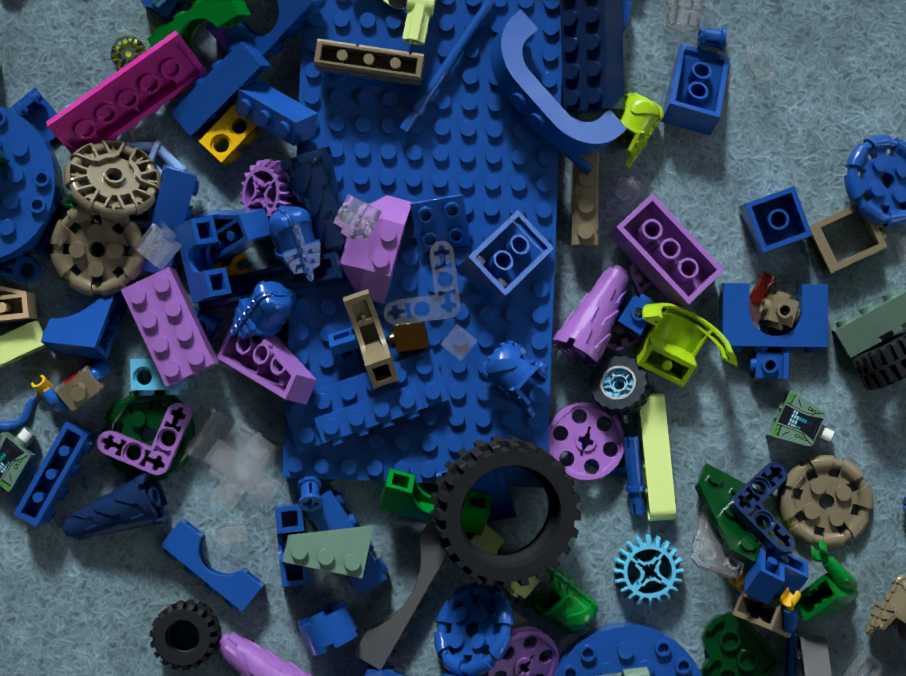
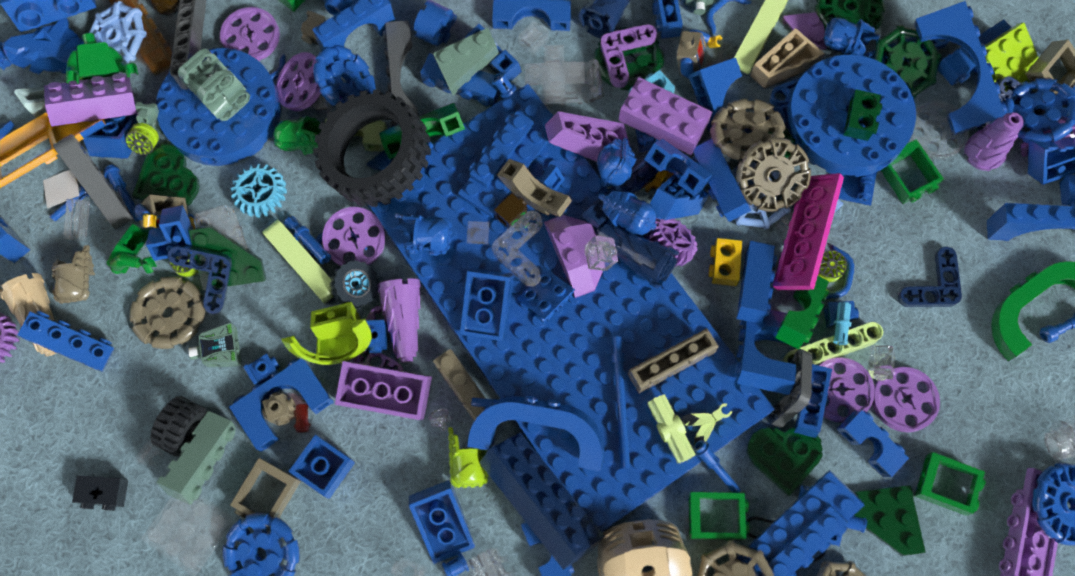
camera: 145 degrees right, 15 degrees down
(122, 31) = (848, 276): none -> blue animal
(158, 245) = (711, 153): clear brick -> none
(276, 113) = (707, 288): blue brick -> none

